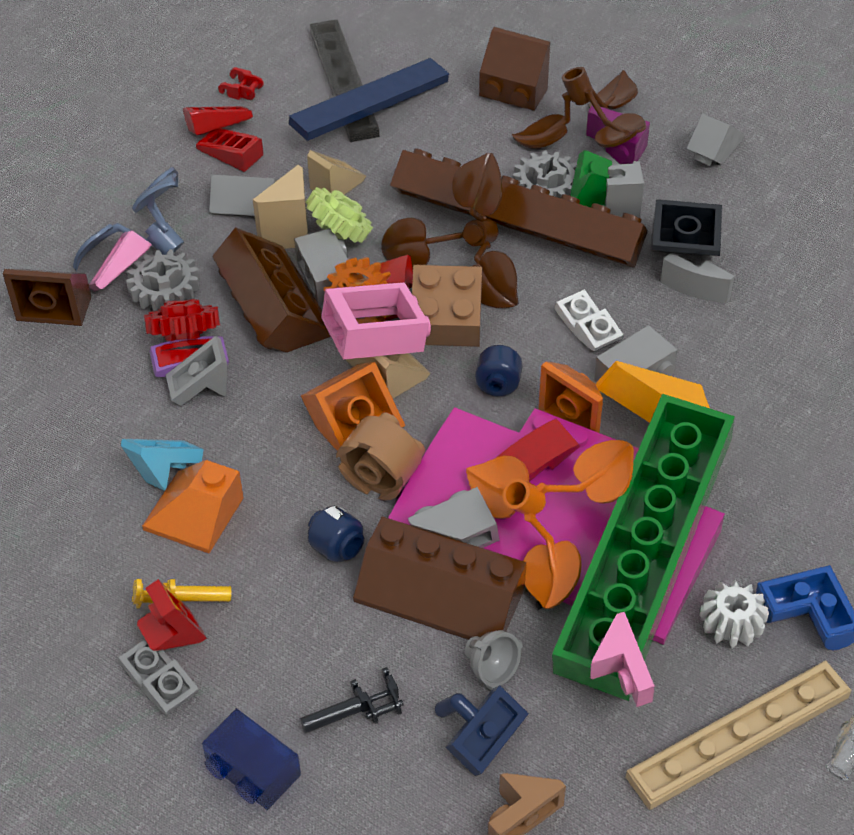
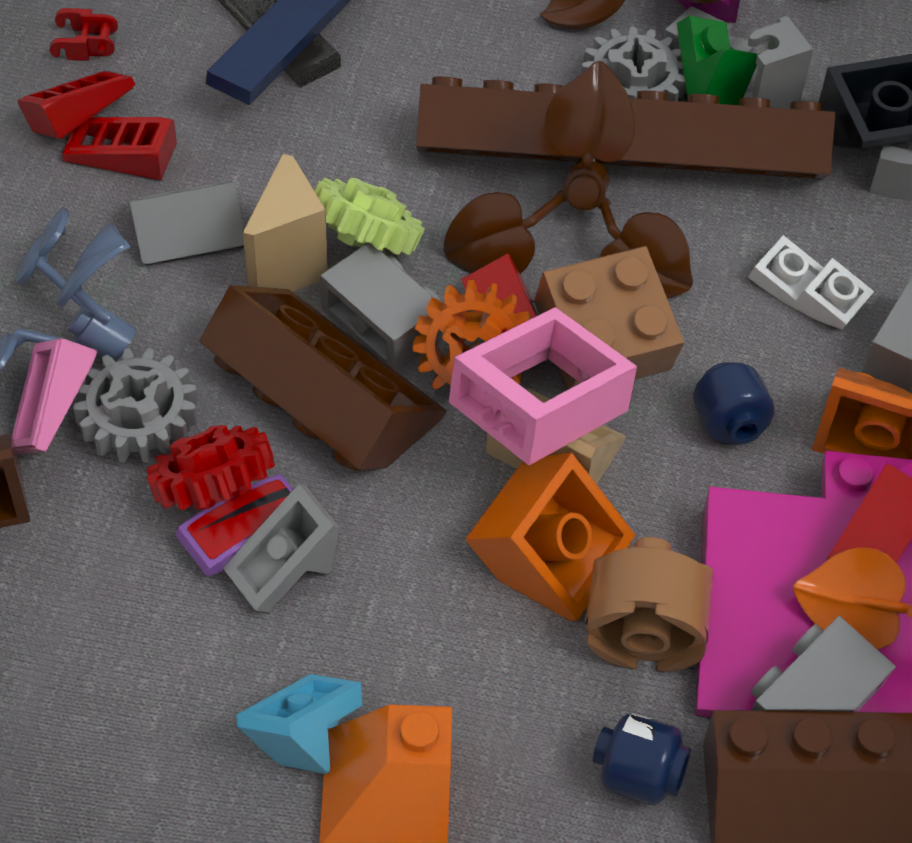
camera: 25 degrees left, 5 degrees up
(332, 173) = (316, 149): tan slope -> none

